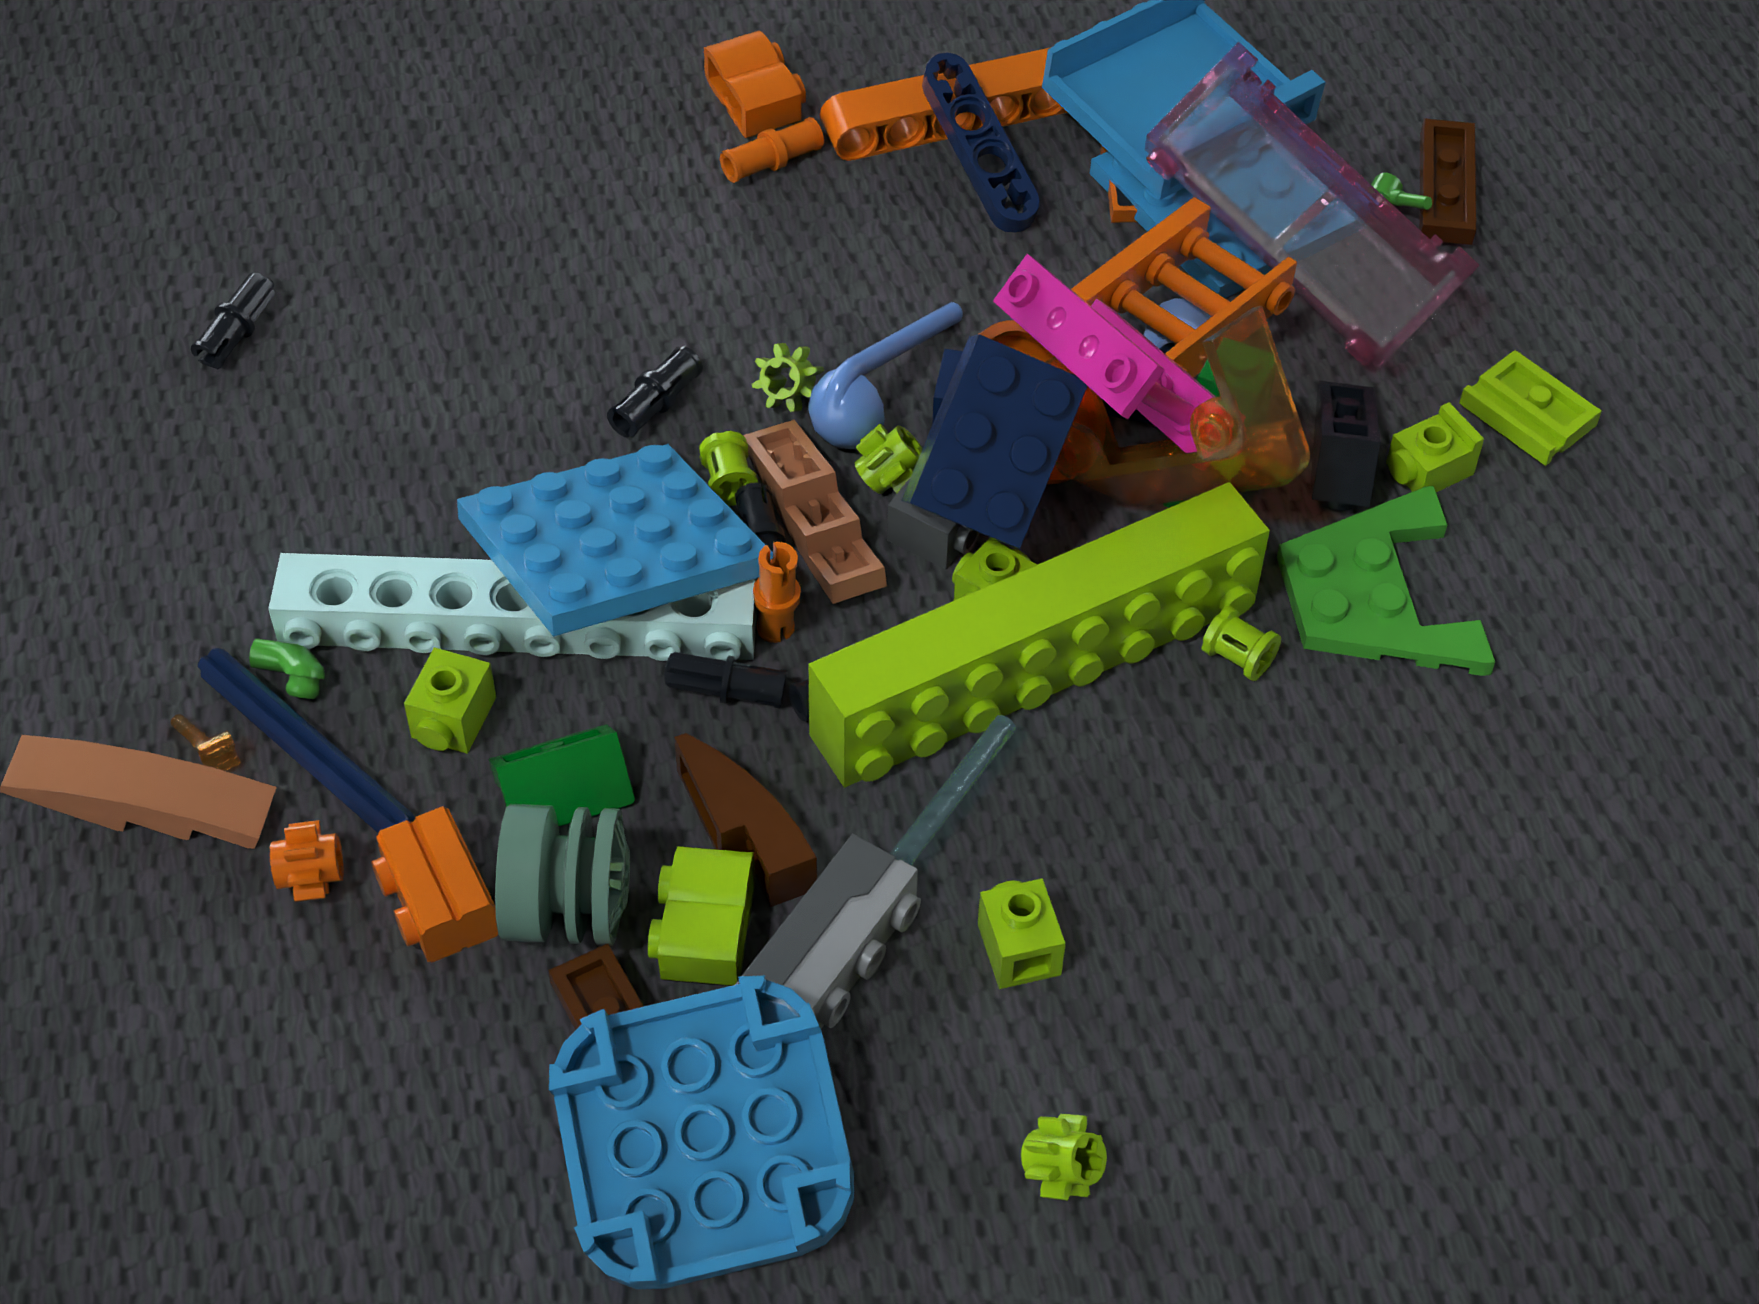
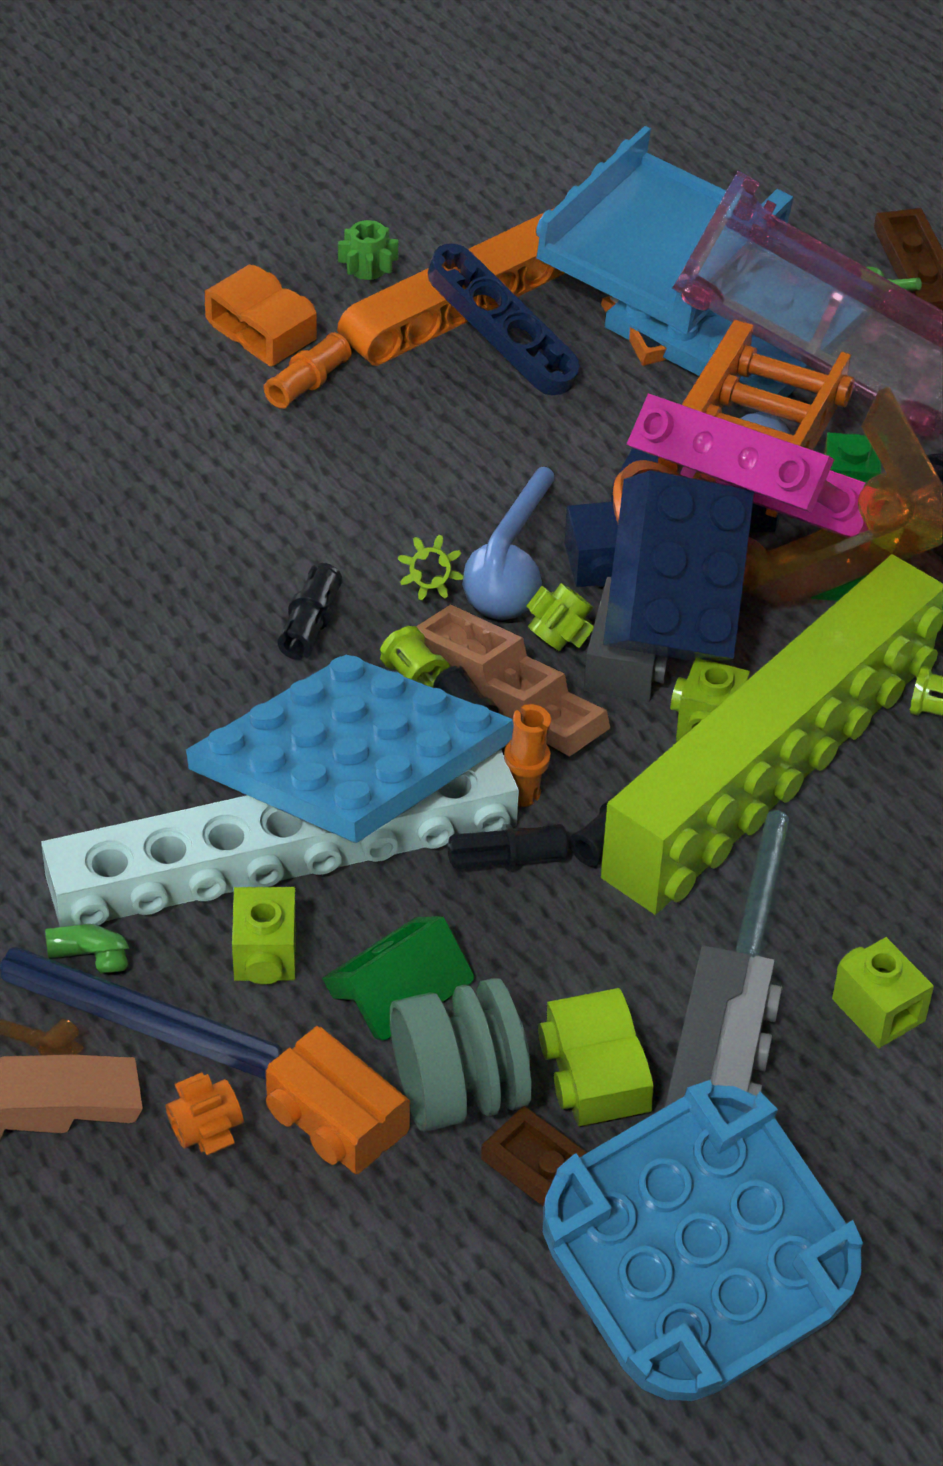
camera: 20 degrees left, 5 degrees down
(746, 819) = (588, 959): reddish brown slope -> none
(888, 41) = (368, 250): none -> bright green gear

